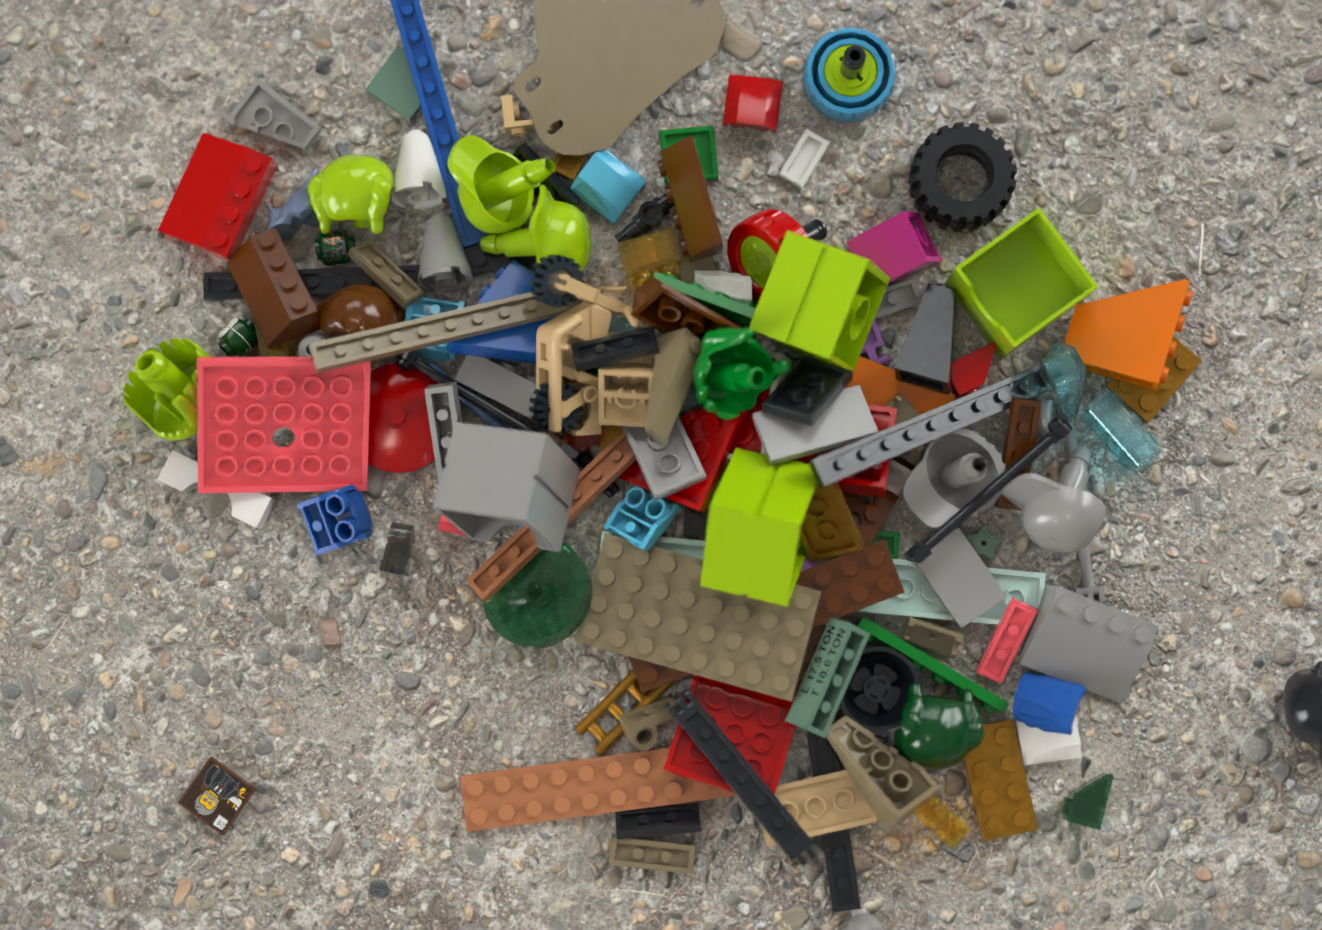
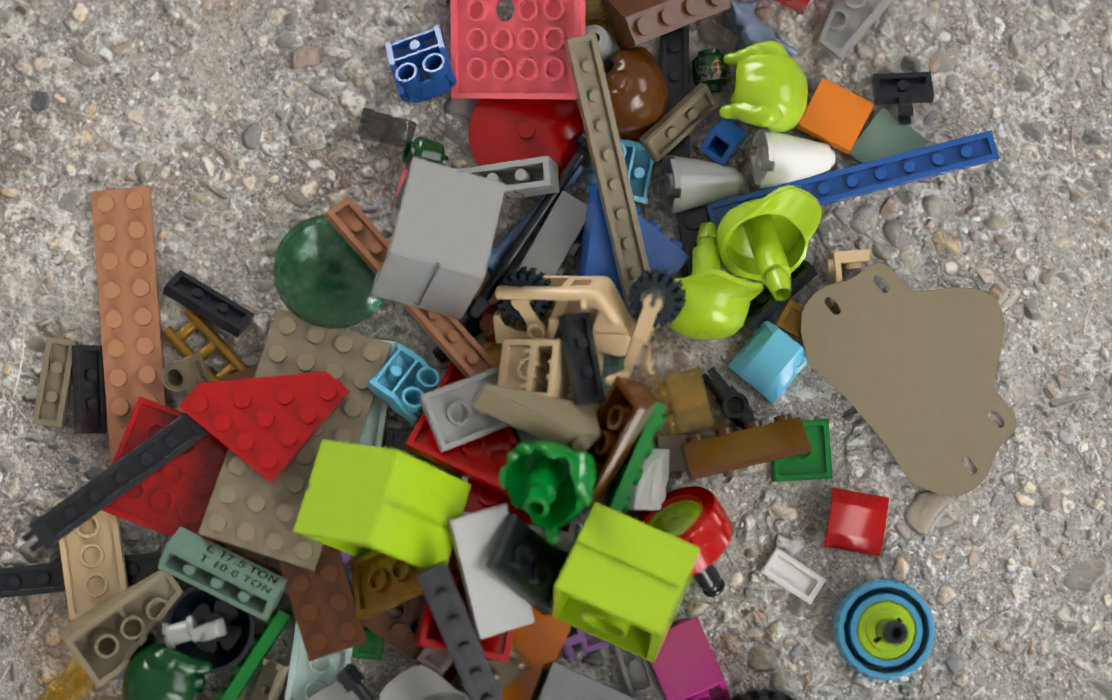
camera: 90 degrees right, 0 degrees up
(349, 70) = (902, 90): none -> black plate
(375, 130) = (835, 116): none -> orange tile
(403, 231) = (724, 141): none -> blue brick
(421, 512) = (424, 149): none -> dark green head
(571, 711) = (208, 303): none -> black plate
(679, 644) = (265, 417): none -> red plate
(882, 707) = (189, 630): none -> light grey connector

